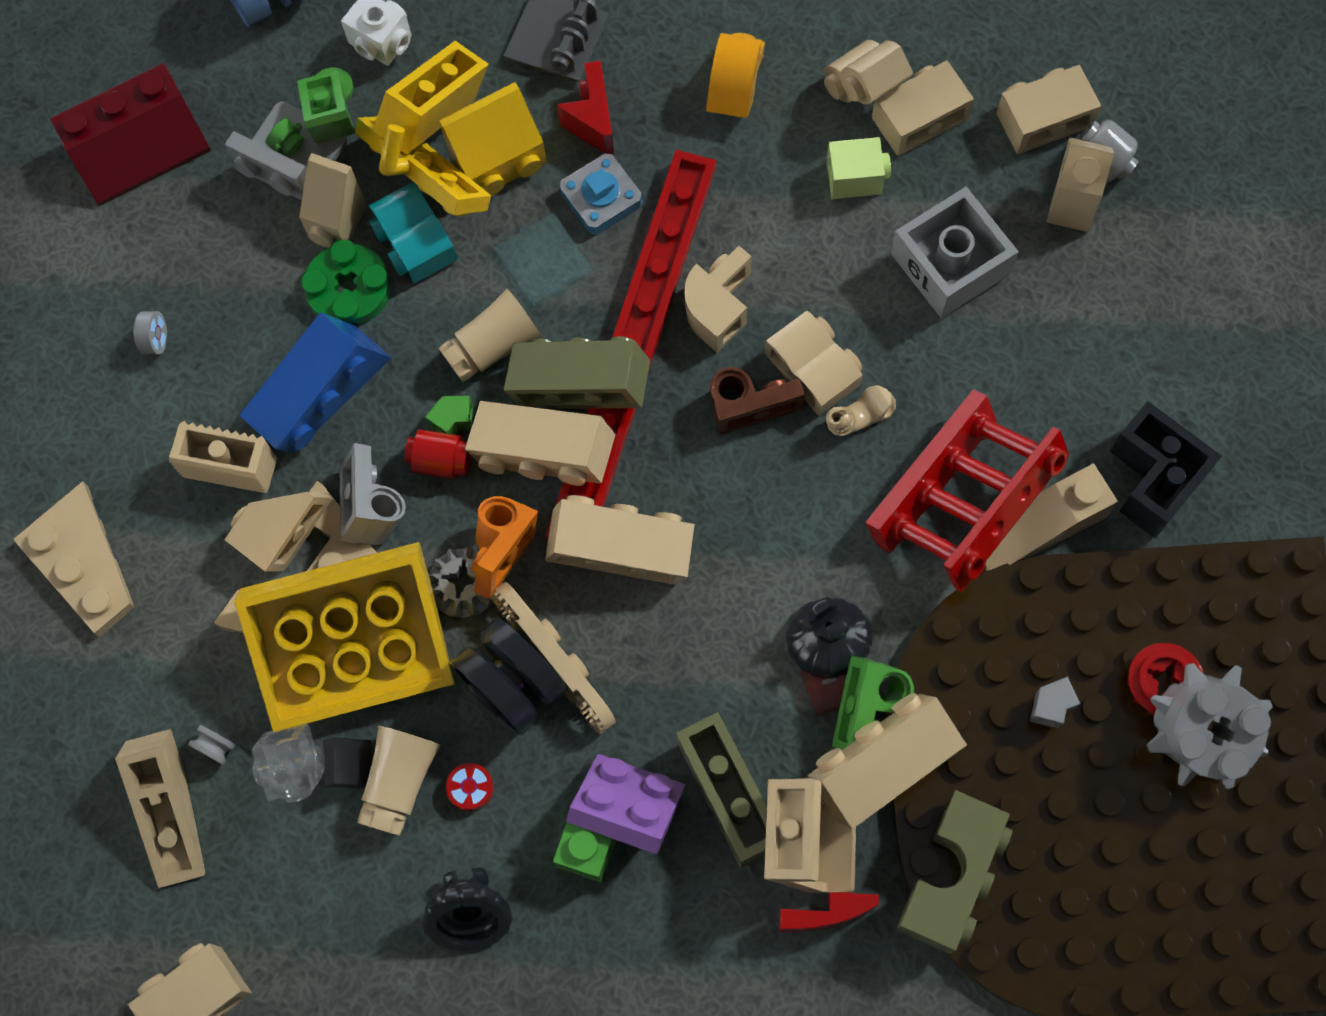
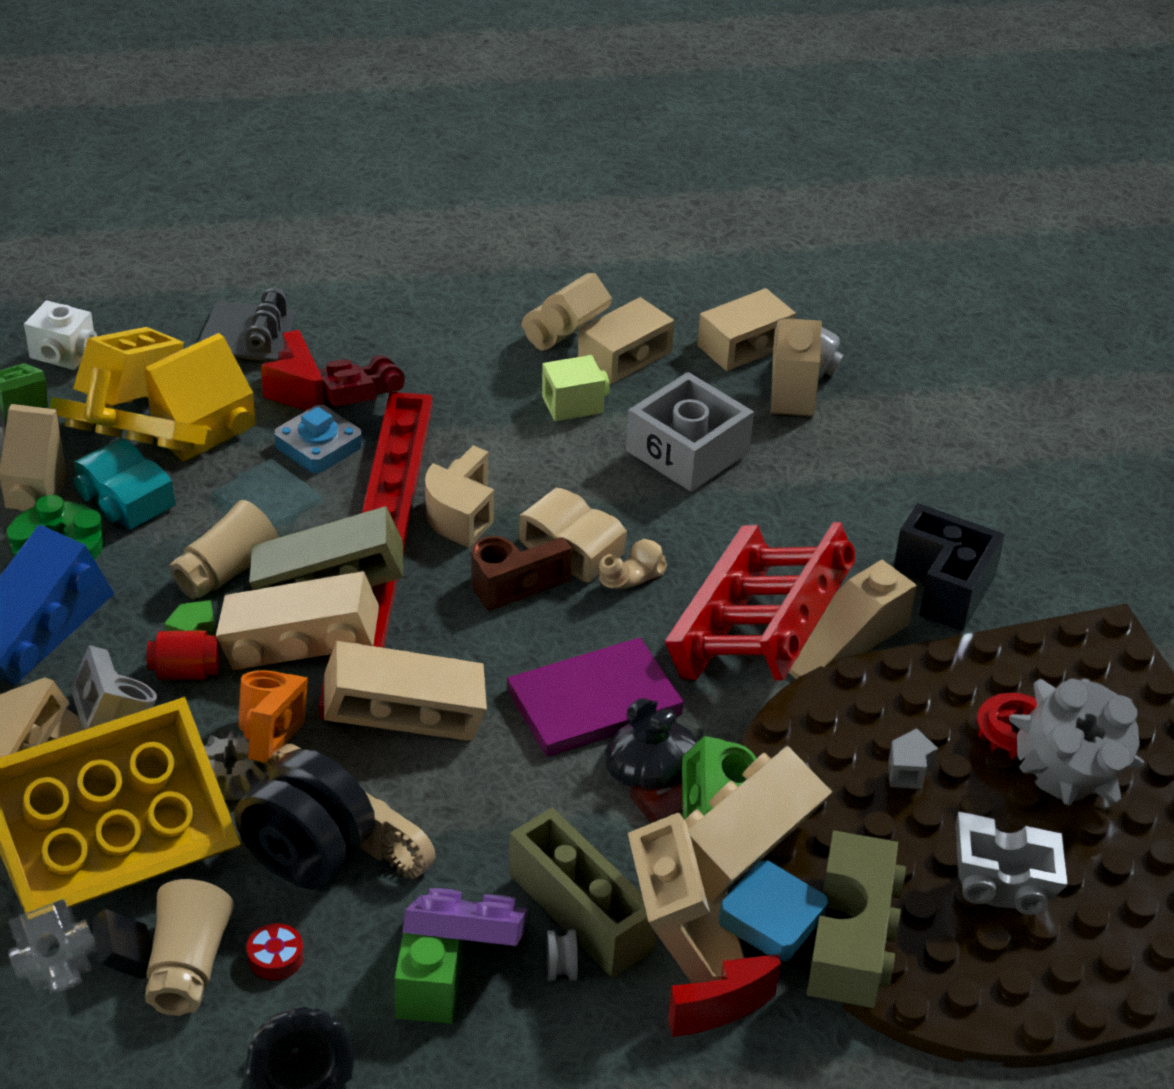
camera: 20 degrees left, 30 degrees down
(637, 134) = (350, 384): none -> dark red plate
(701, 843) = (562, 955): none -> light grey bush
(734, 74) = (435, 329): light orange brick -> none
(793, 557) = (589, 695): none -> magenta tile
(887, 847) = (772, 910): none -> dark azure piece
(1106, 844) = (1009, 868): none -> light grey cylinder

